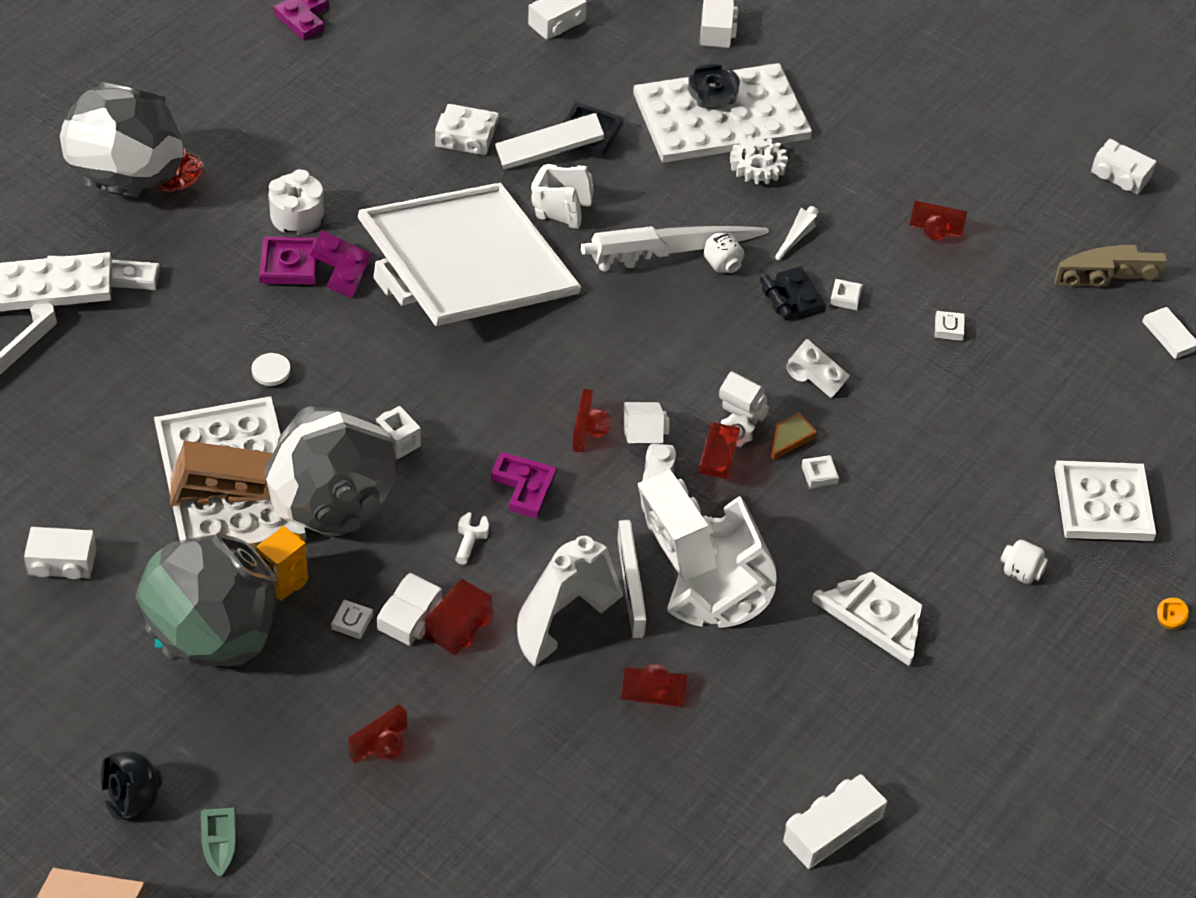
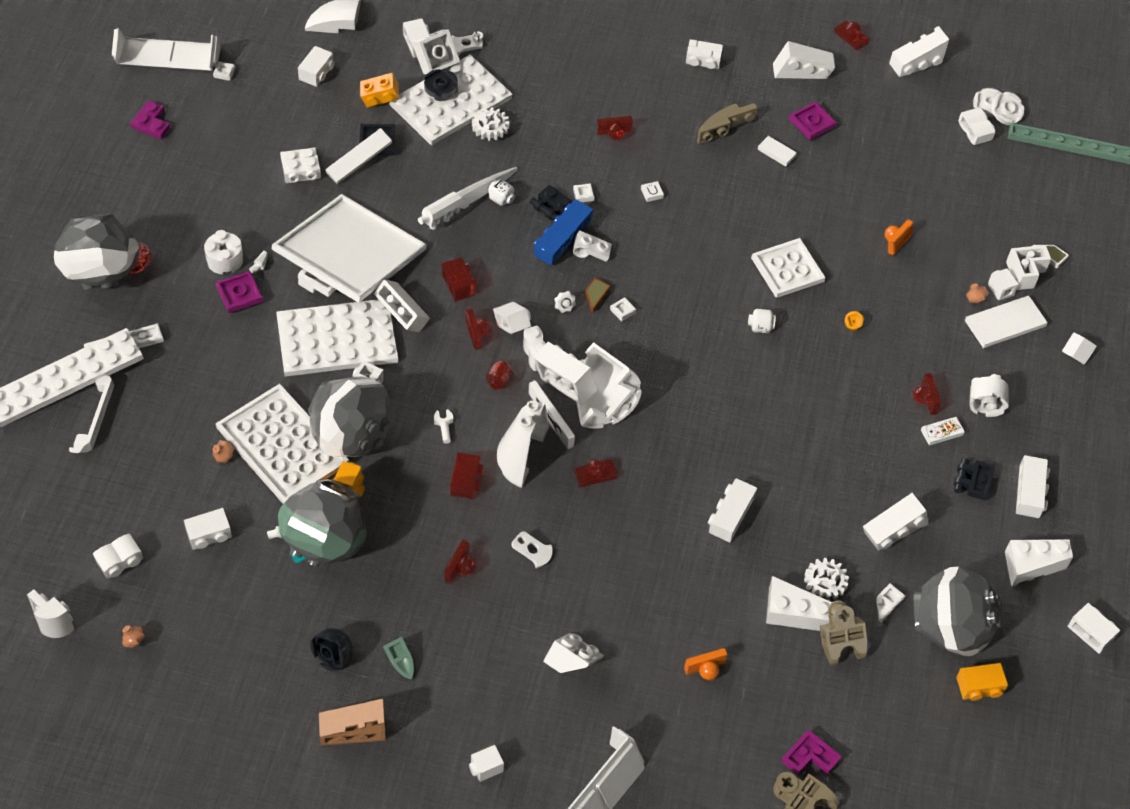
camera: 25 degrees left, 5 degrees up
(142, 457) = (223, 451): none -> nougat piece
(218, 472) = (279, 443): medium nougat wedge -> none
(271, 369) = (267, 366): white piece -> none
(344, 230) = (259, 263): none -> white bar
(346, 258) = (275, 278): magenta plate -> none
(352, 619) = (403, 501): white tile -> none
(387, 364) = (336, 337): none -> white plate
(408, 608) = (434, 482): white brick -> none
(497, 353) = (401, 306): none -> white brick
(503, 777) = (543, 553): none -> white piece
(530, 480) = (459, 375): magenta plate -> none
(560, 193) = (385, 188): white piece -> none
(585, 496) = (499, 375): none -> clear red head
(599, 346) = (458, 279): none -> clear red brick
(625, 67) = (379, 90): none -> light orange brick
(719, 450) = (563, 318): clear red tile -> none
(729, 41) = (436, 51): none -> white brick
(744, 397) = (562, 280): white brick -> none
(768, 48) = (473, 39): none -> white piece
(783, 334) = (562, 232): none -> blue brick
(803, 224) = (537, 156): white piece -> none
(876, 612) = (696, 381): white wing -> none

